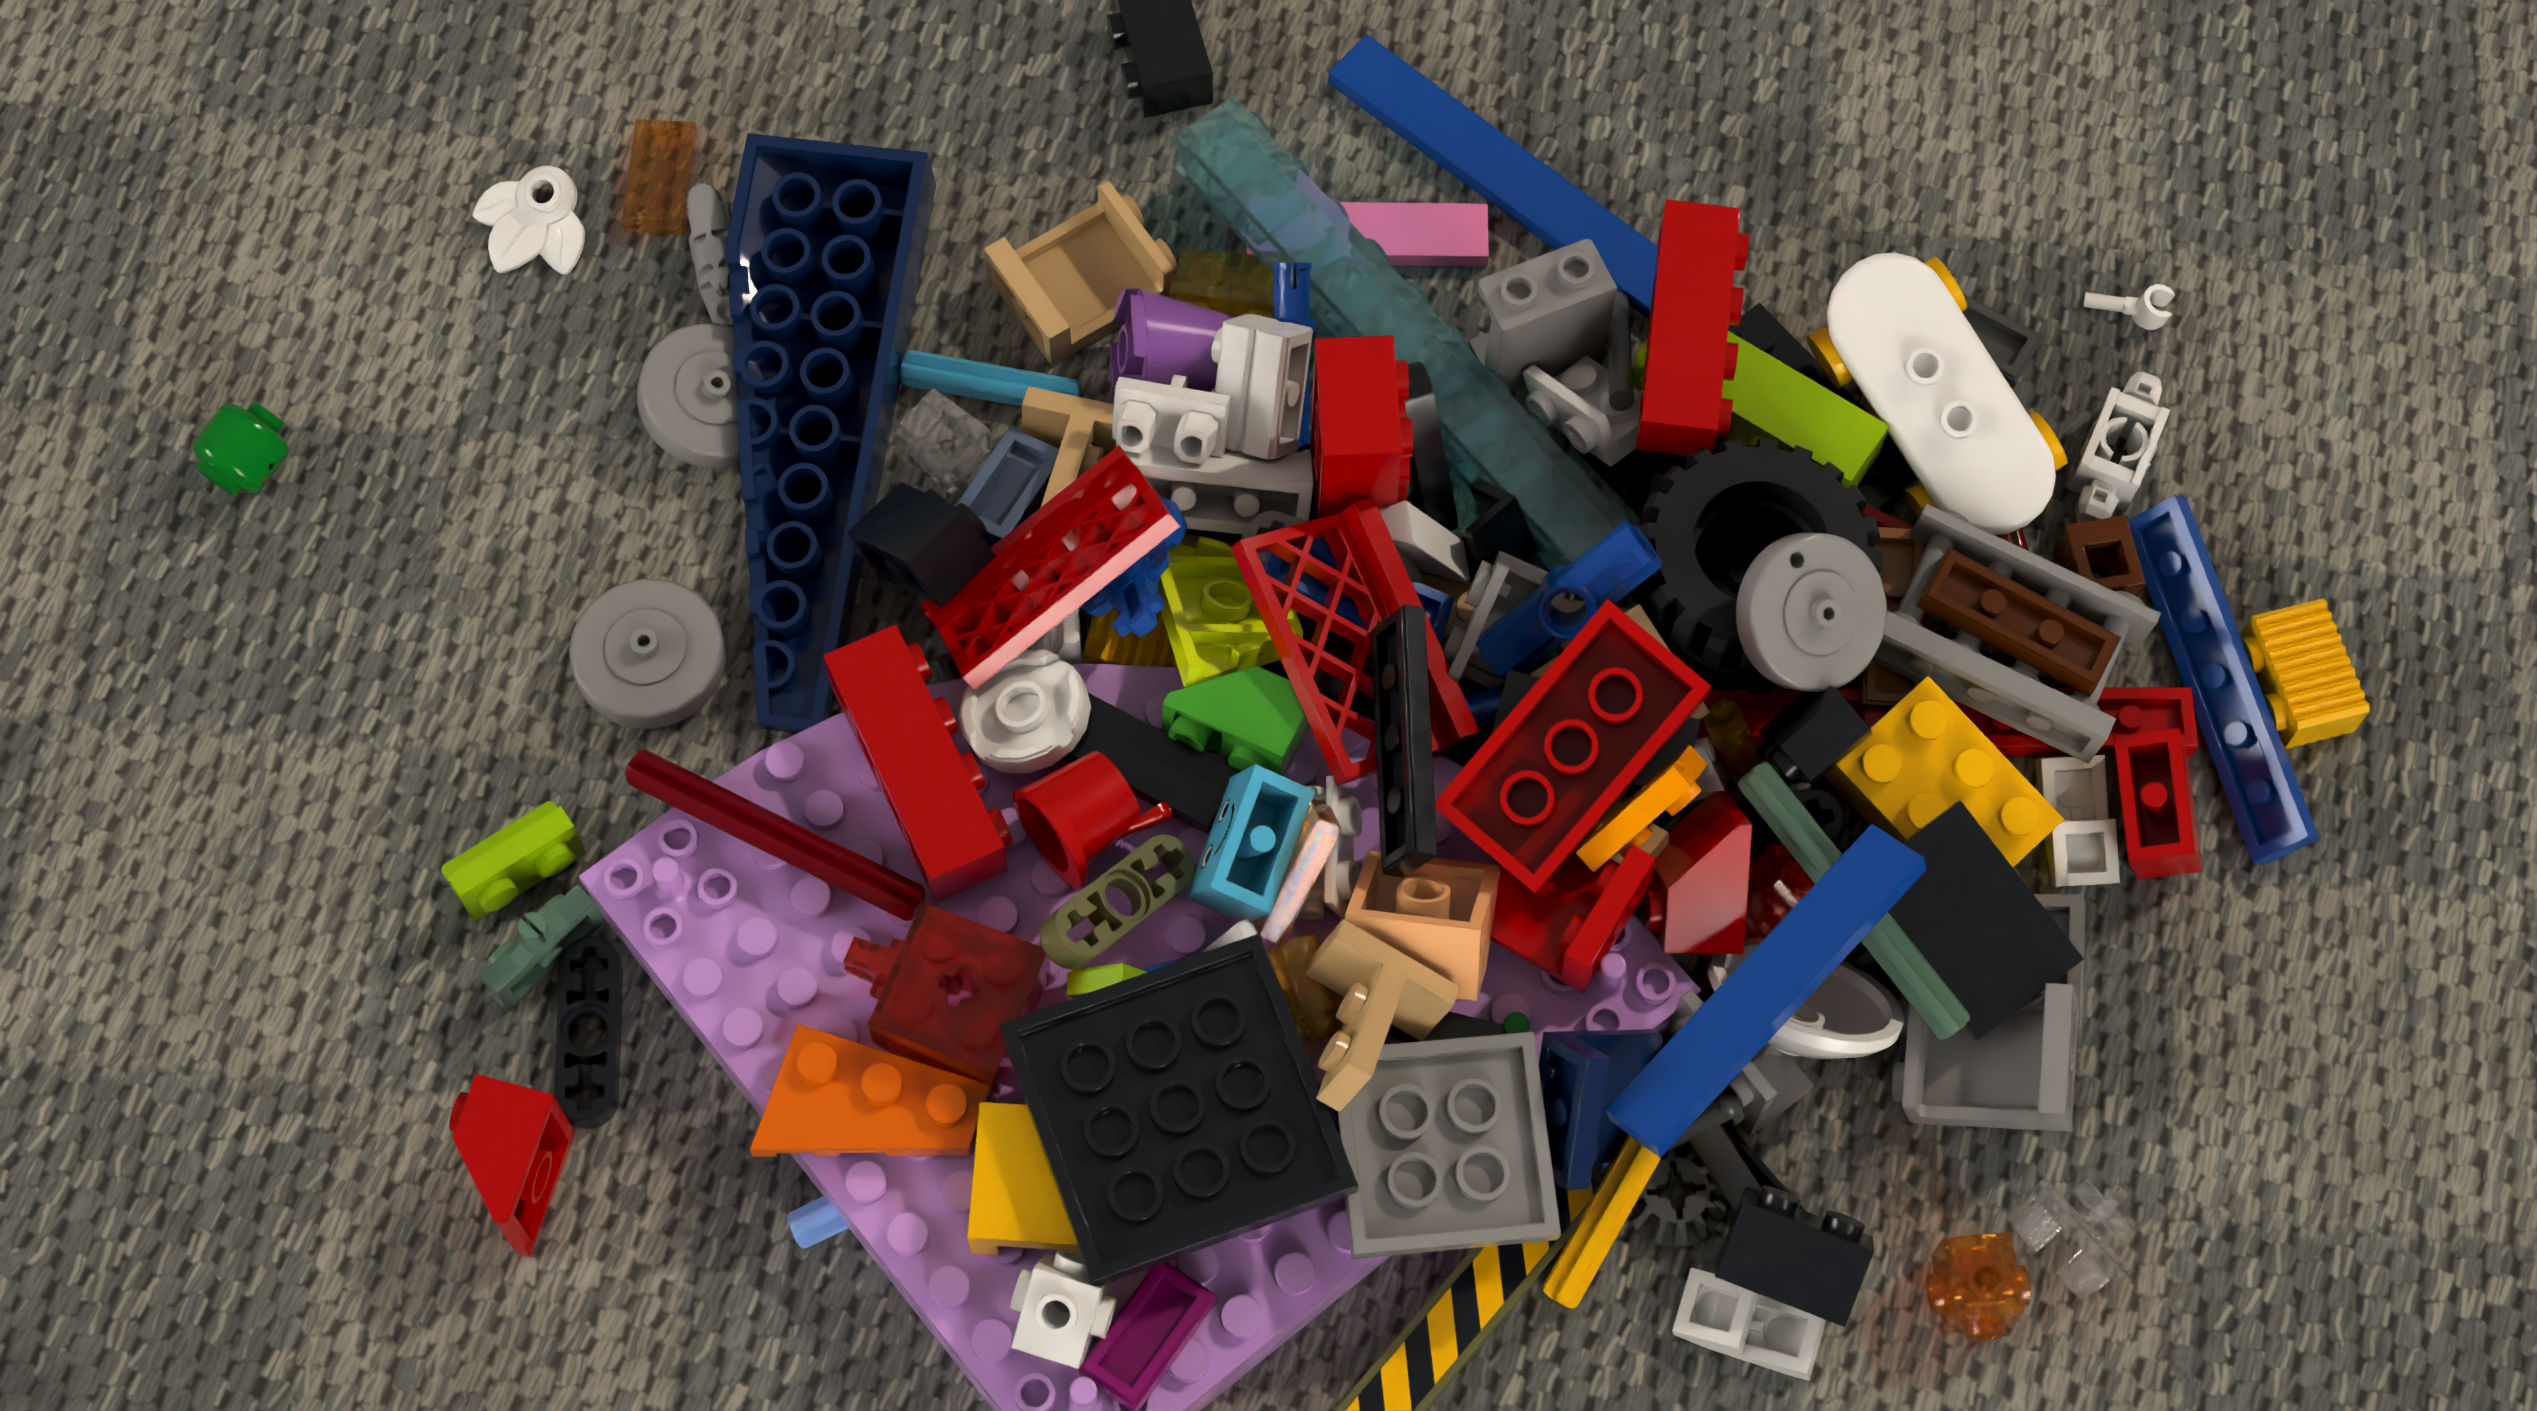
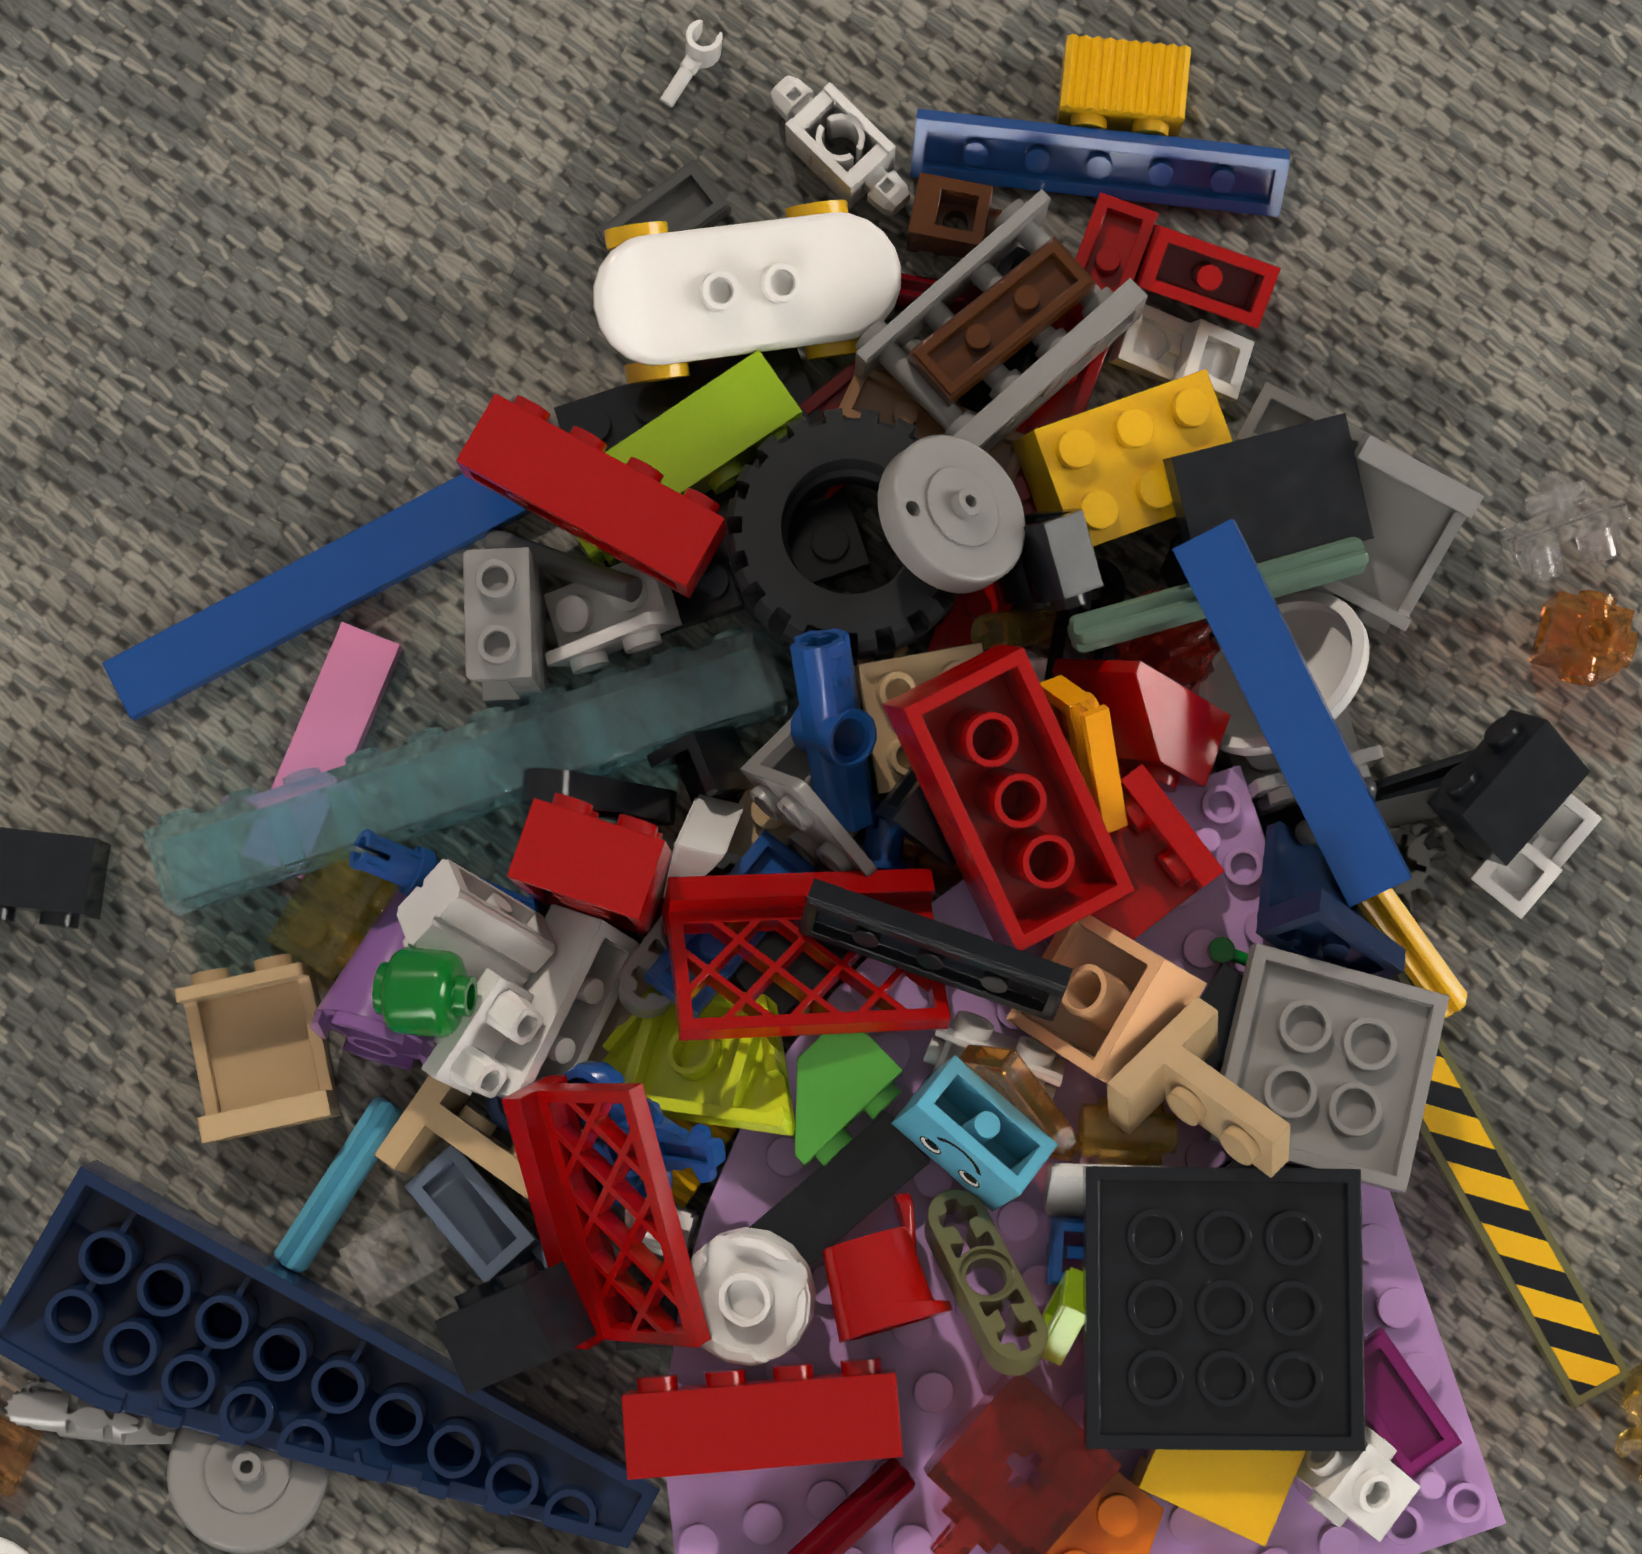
camera: 65 degrees left, 15 degrees up
(1187, 347) = (424, 992): none -> green head

